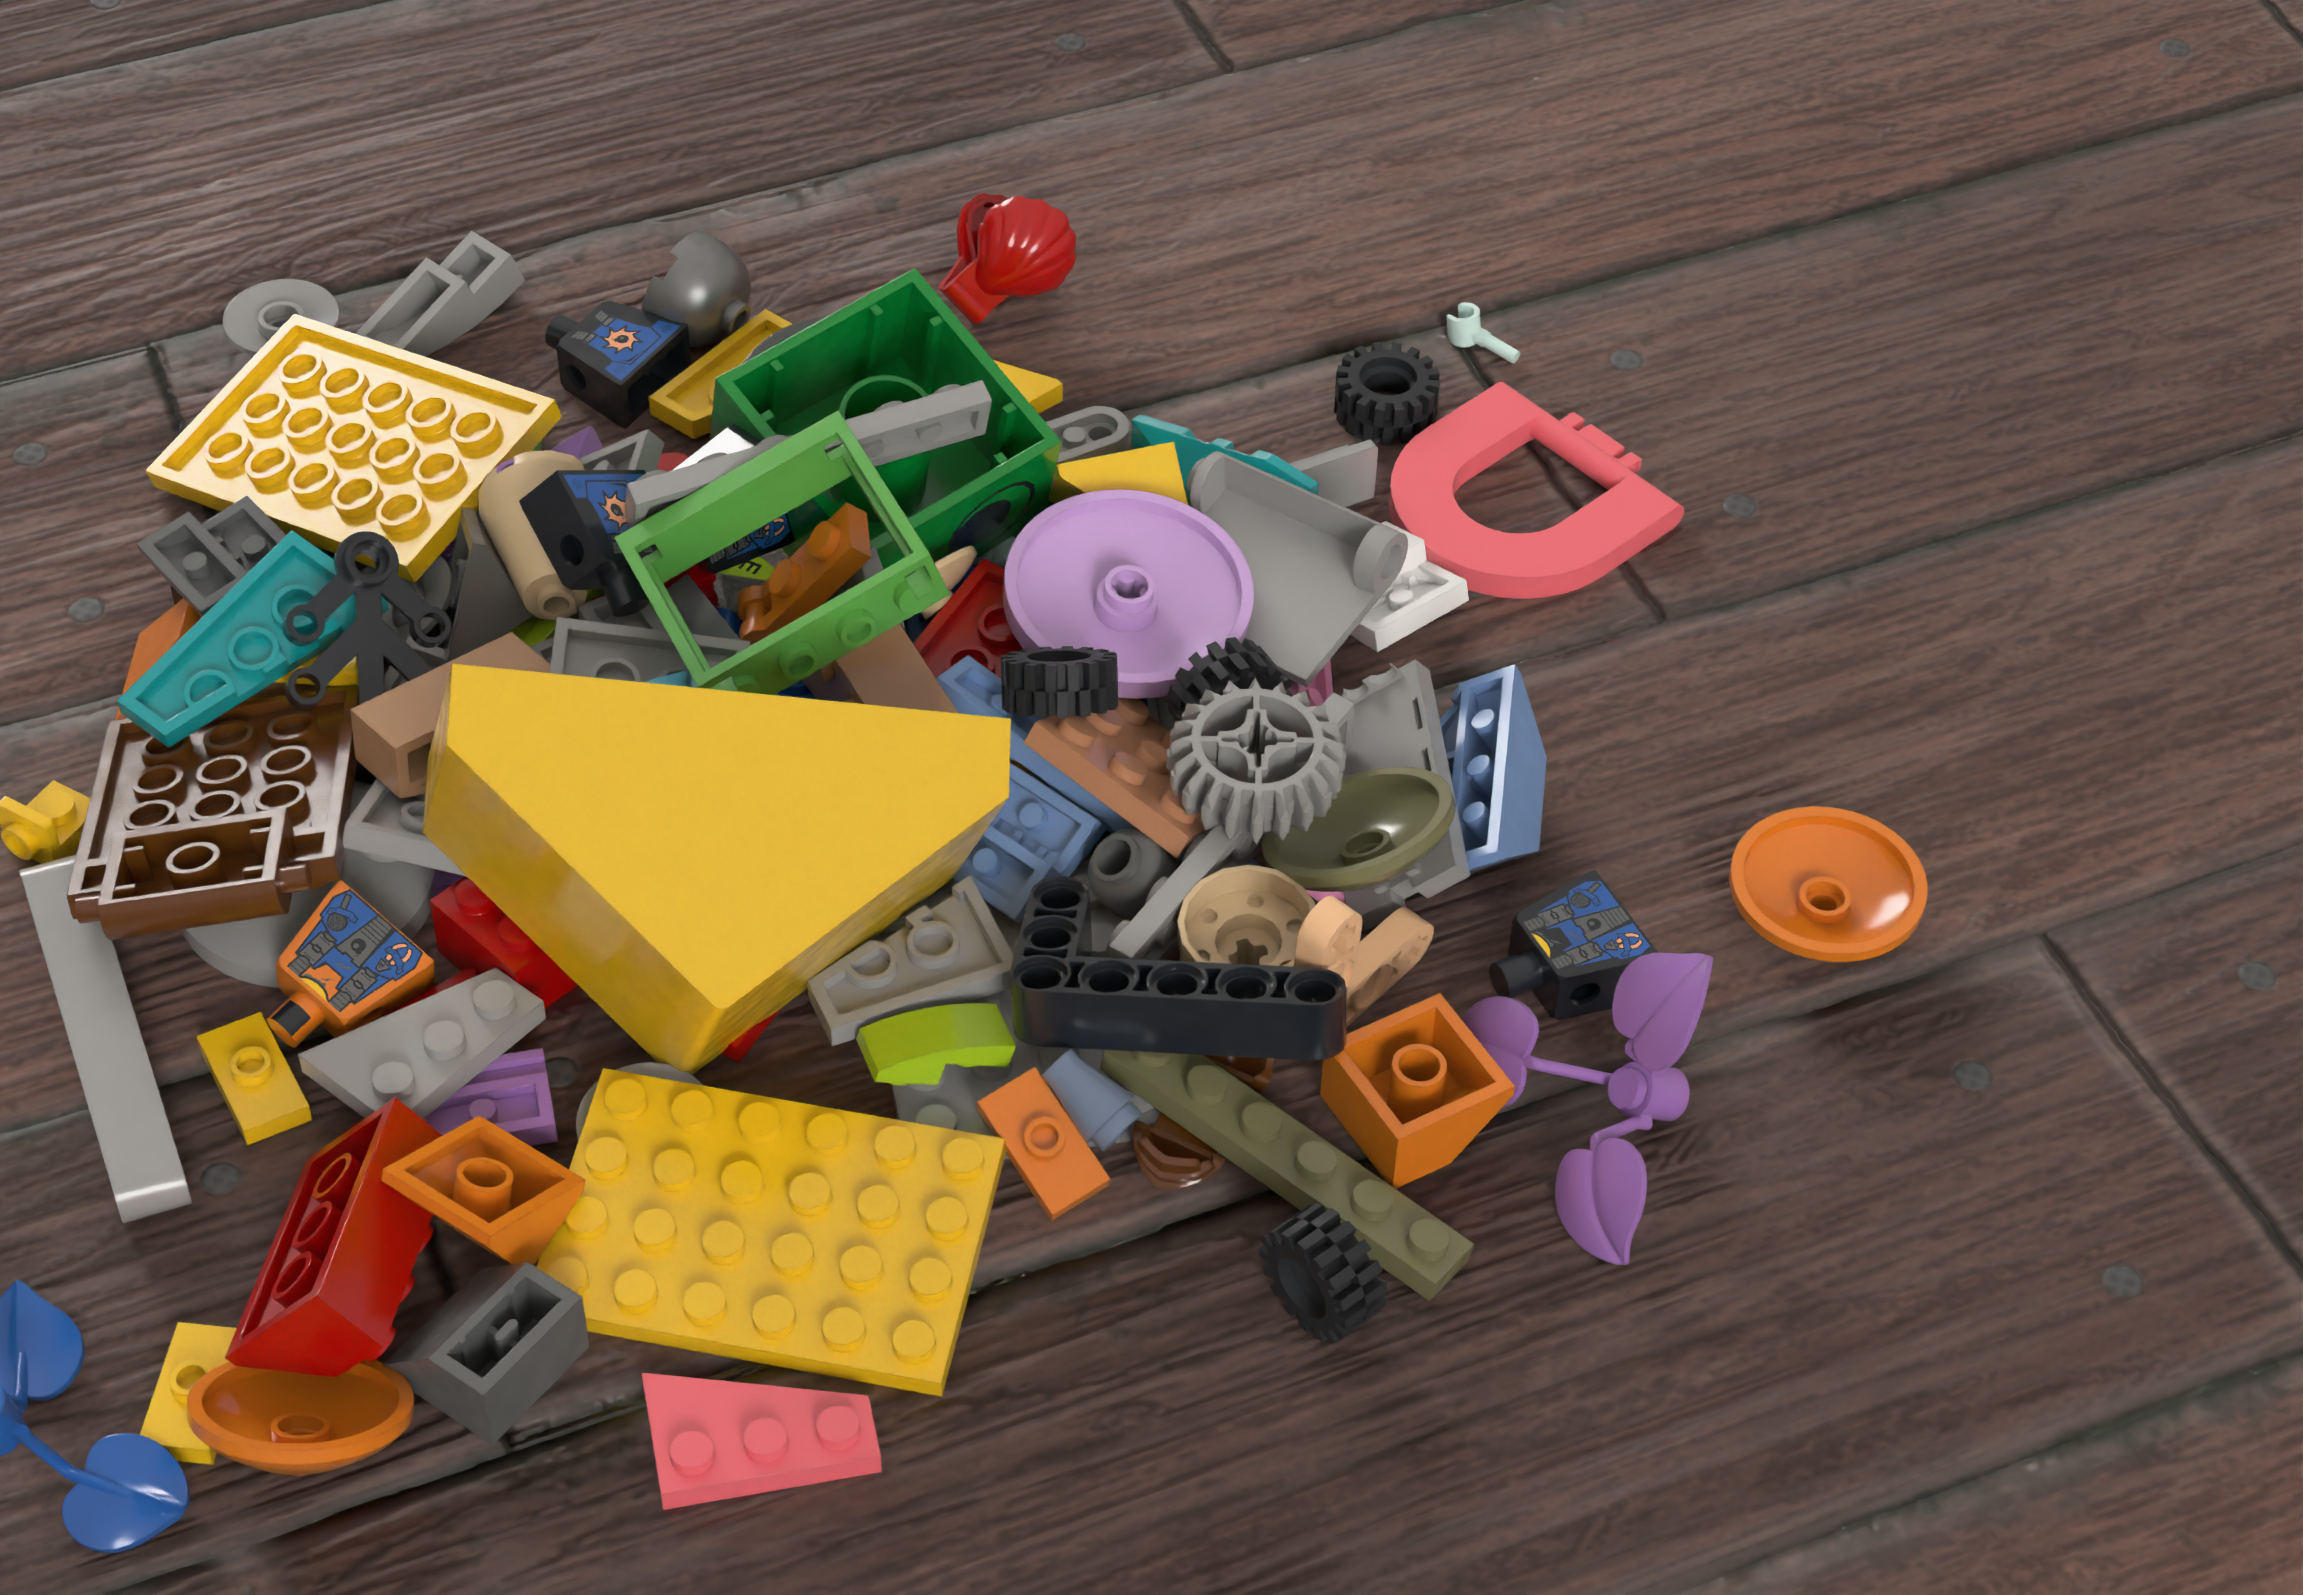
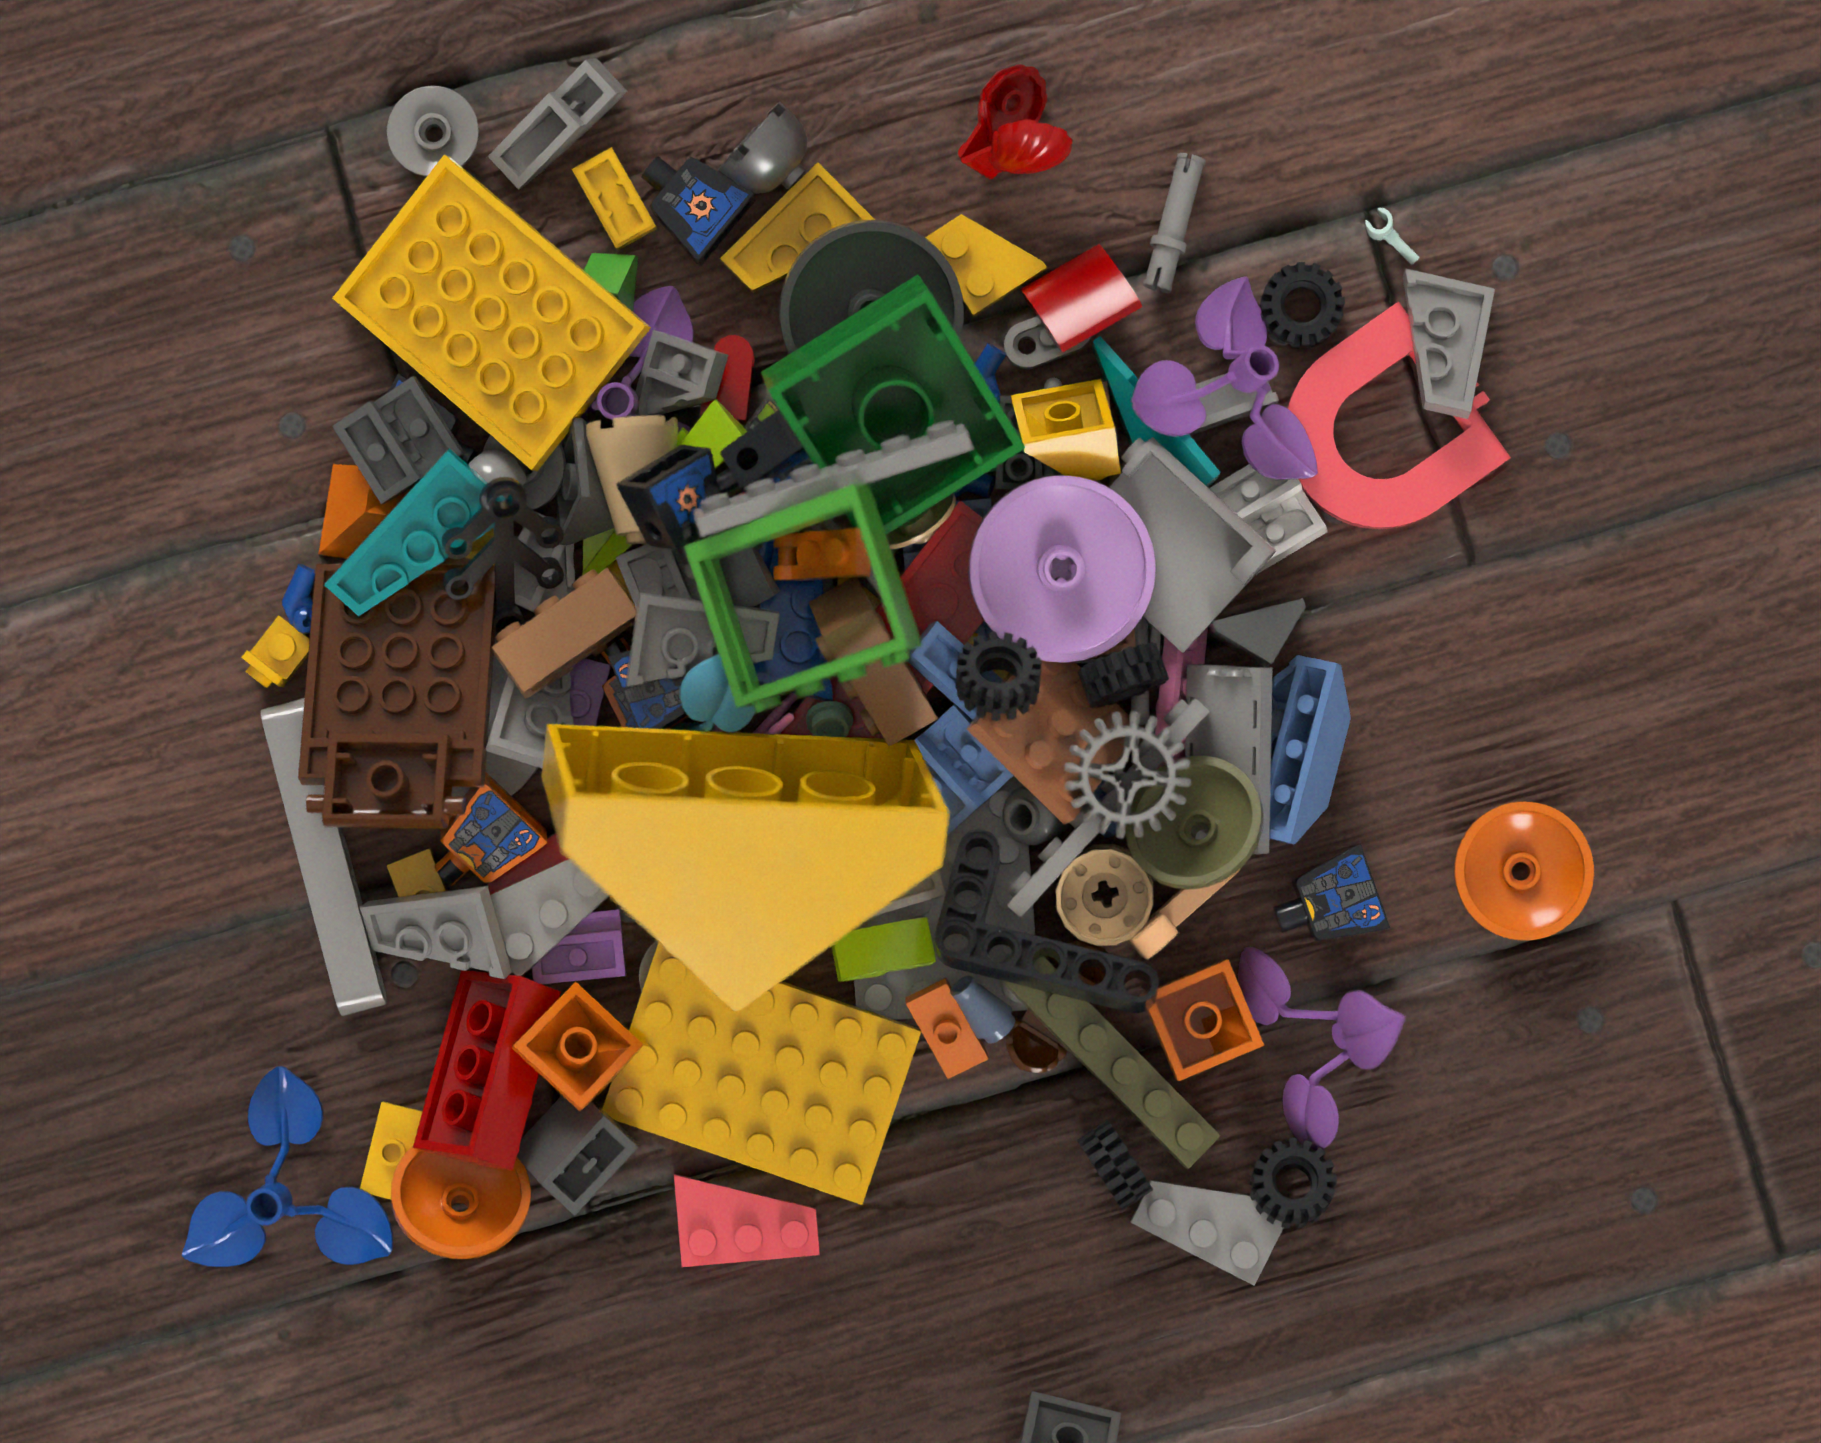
camera: 15 degrees right, 40 degrees up
(82, 761) = (297, 598): none -> blue arm
(272, 1070) = (440, 926): none -> light grey wing
(509, 356) = (614, 199): none -> yellow plate
(1114, 390) = (1081, 298): none -> red slope
(1211, 350) = (1169, 241): none -> light grey pin
(1313, 409) = (1171, 404): none -> medium lavender plant
(1399, 635) = (1258, 633): none -> dark grey slope
(1488, 1365) = (1210, 1225): none -> light grey wing
(1572, 397) = (1447, 338): none -> light grey wing
(1596, 1280) = (1292, 1156): none -> black tyre

